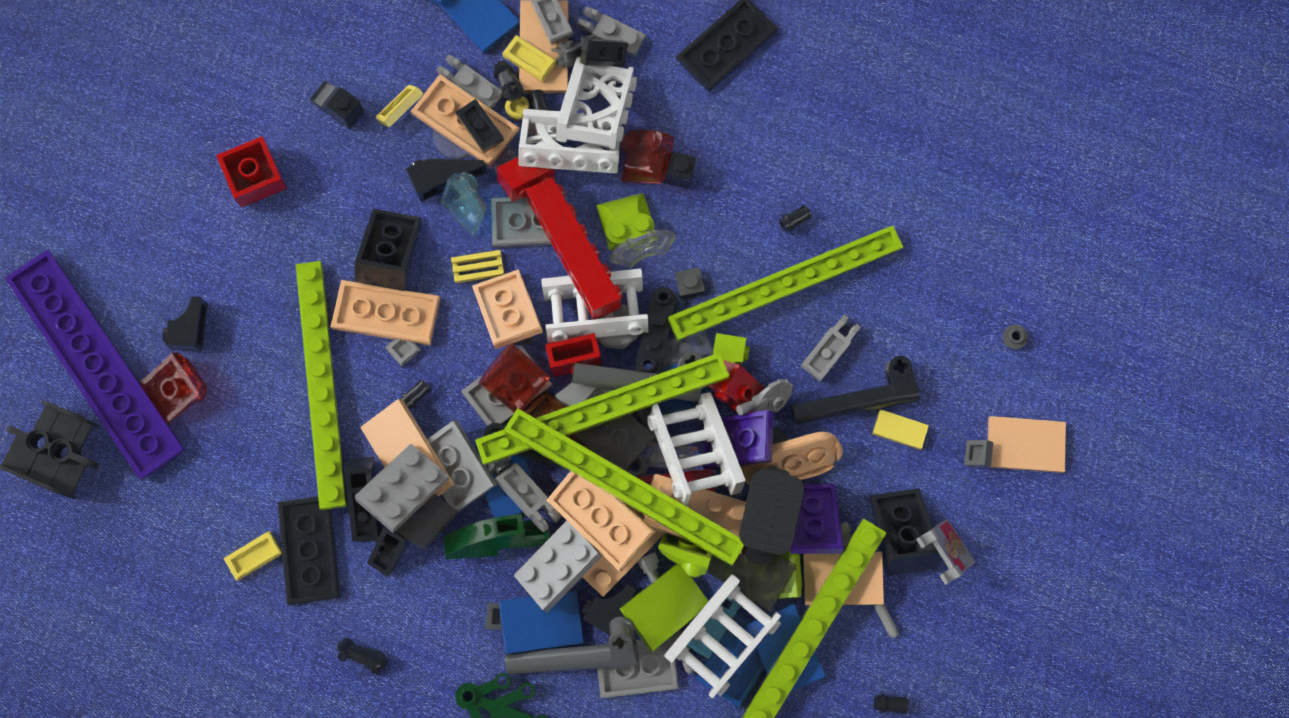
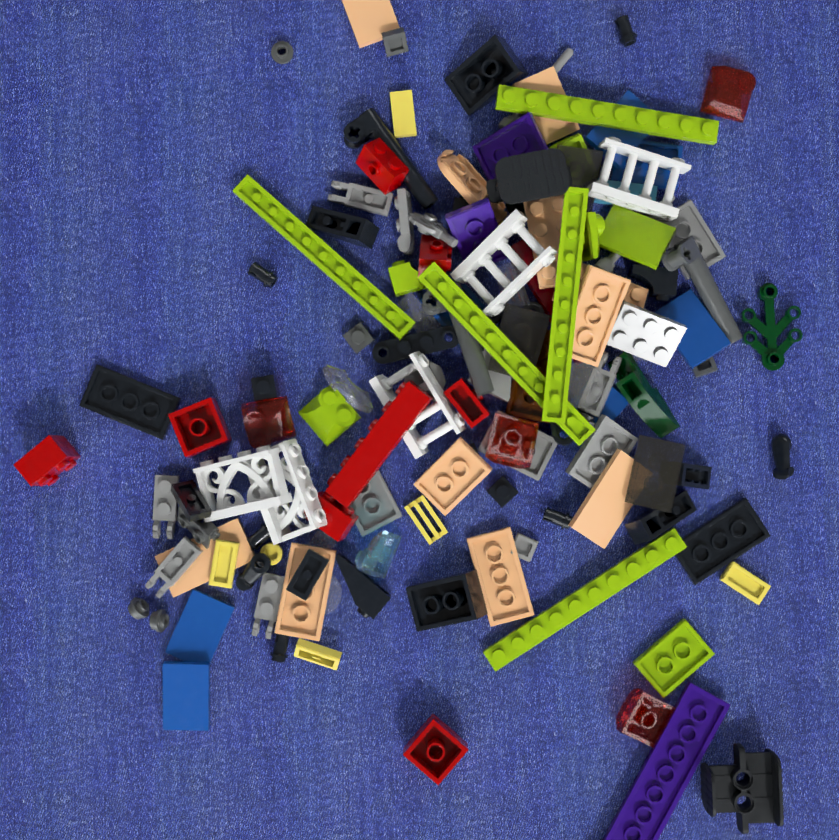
camera: 110 degrees left, 10 degrees up
(187, 330) = (590, 730): black arch -> none
(216, 446) = (673, 658): none -> lime tile
(338, 104) = (340, 708): black arch -> none
(401, 488) = (644, 486): light grey plate -> none
(419, 73) = (280, 648): none -> black pin
(468, 353) = (502, 491): none -> black plate
(535, 475) = (585, 385): none -> clear tile
(671, 92) = (200, 427): none -> red brick
(802, 385) = (404, 225): none -> light grey hinge
(808, 316) = (343, 226): none -> black slope
(853, 380) = (382, 165): none -> red brick
(950, 548) = (486, 29): light grey flag -> none

